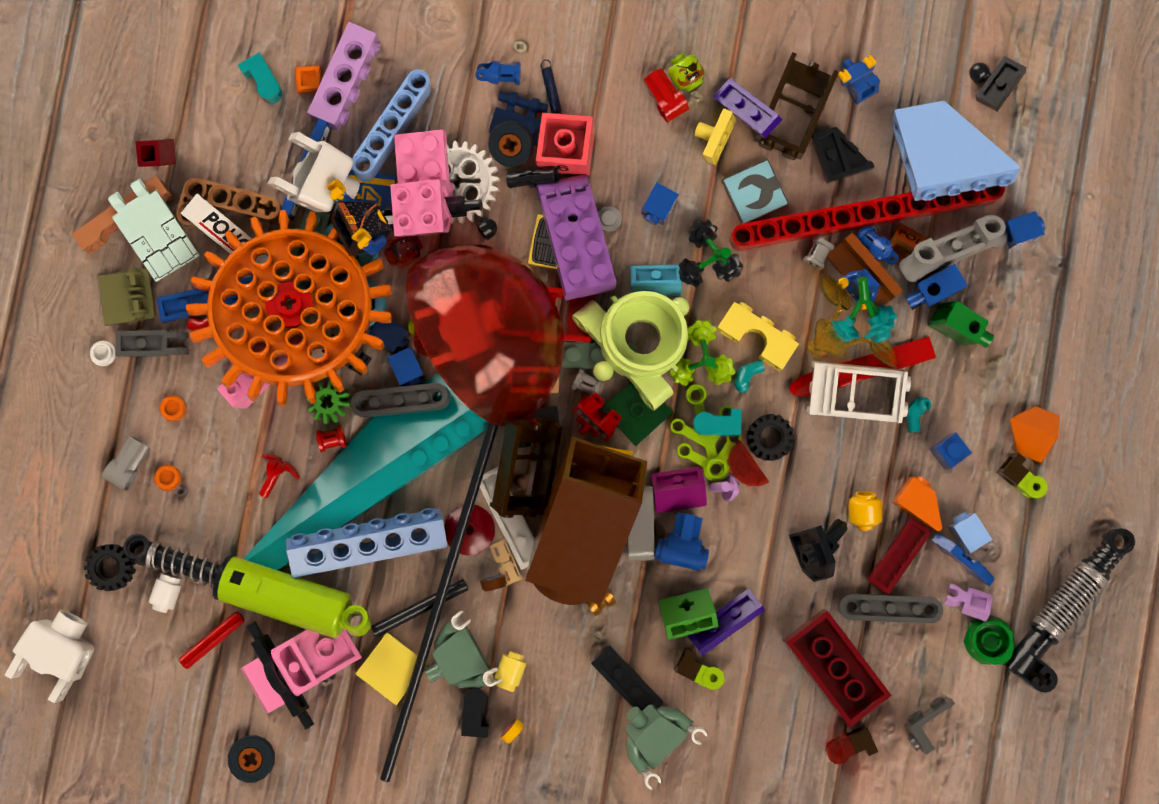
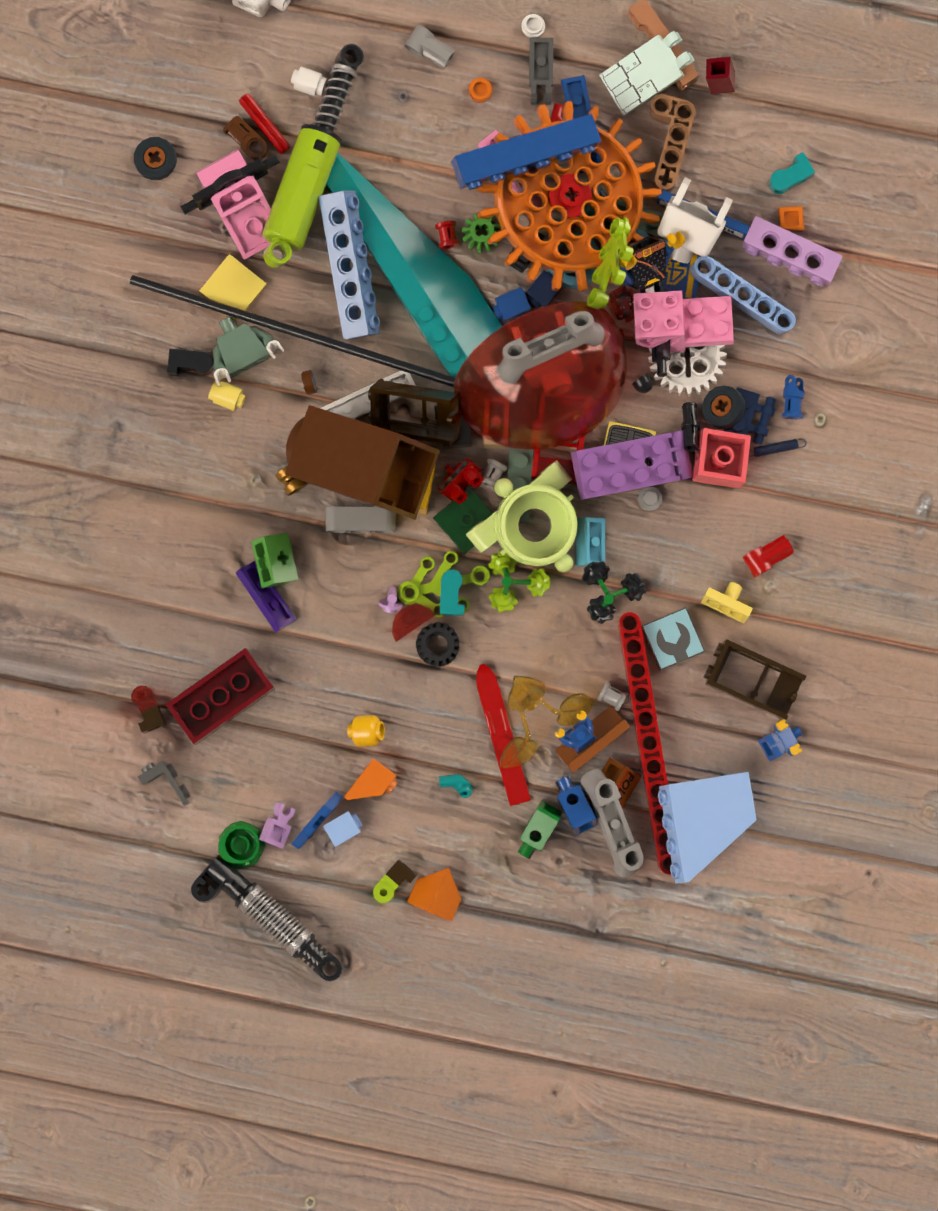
camera: 90 degrees right, 0 degrees up
(94, 568) = (328, 18): black tyre -> none
(126, 296) = (585, 47): olive hinge -> none
(167, 477) = (415, 84): orange tile -> none
(215, 224) = (649, 131): white tile -> none
(226, 660) = (245, 136): none -> reddish brown piece
(242, 350) = (526, 152): none -> blue brick
(273, 470) = (418, 181): red plant -> none
(330, 247) = (619, 232): none -> lime plant
(400, 400) = (480, 297): dark grey plate -> none
(416, 609) = (286, 311): black piece -> none
(472, 344) = (522, 356): none -> light grey plate
(483, 530) = (358, 374): dark red dish -> none
(504, 557) = (333, 394): tan piece -> none
(512, 731) = (172, 396): yellow tile -> none
(625, 679) = (213, 503): black plate -> none
(655, 735) = (163, 526): sand green torso -> none
(659, 204) = (662, 546): blue brick -> none
(679, 489) = (391, 557): magenta panel -> none
(683, 546) = (337, 558): blue piece -> none
(686, 72) = (790, 576): lime head -> none
(705, 675) = (215, 579): leg -> none
(744, 375) = (498, 622): teal arm -> none
(747, 108) = (752, 630): plate -> none
(777, 345) = (548, 618): light yellow arch -> none
(816, 549) = (331, 682): black piece -> none
(824, 391) = (485, 695): white door -> none
(838, 155) = (706, 719): black wing -> none
(880, 247) = (617, 751): blue piece -> none
(880, 318) = (542, 749): teal plant -> none
(890, 608) = (273, 751): dark grey plate -> none
(899, 555) = (322, 761): dark red plate -> none
(950, 451) = (419, 813): blue brick -> none
(997, 84) = (774, 876): black plate -> none
(1024, 229) = (631, 894): blue brick -> none

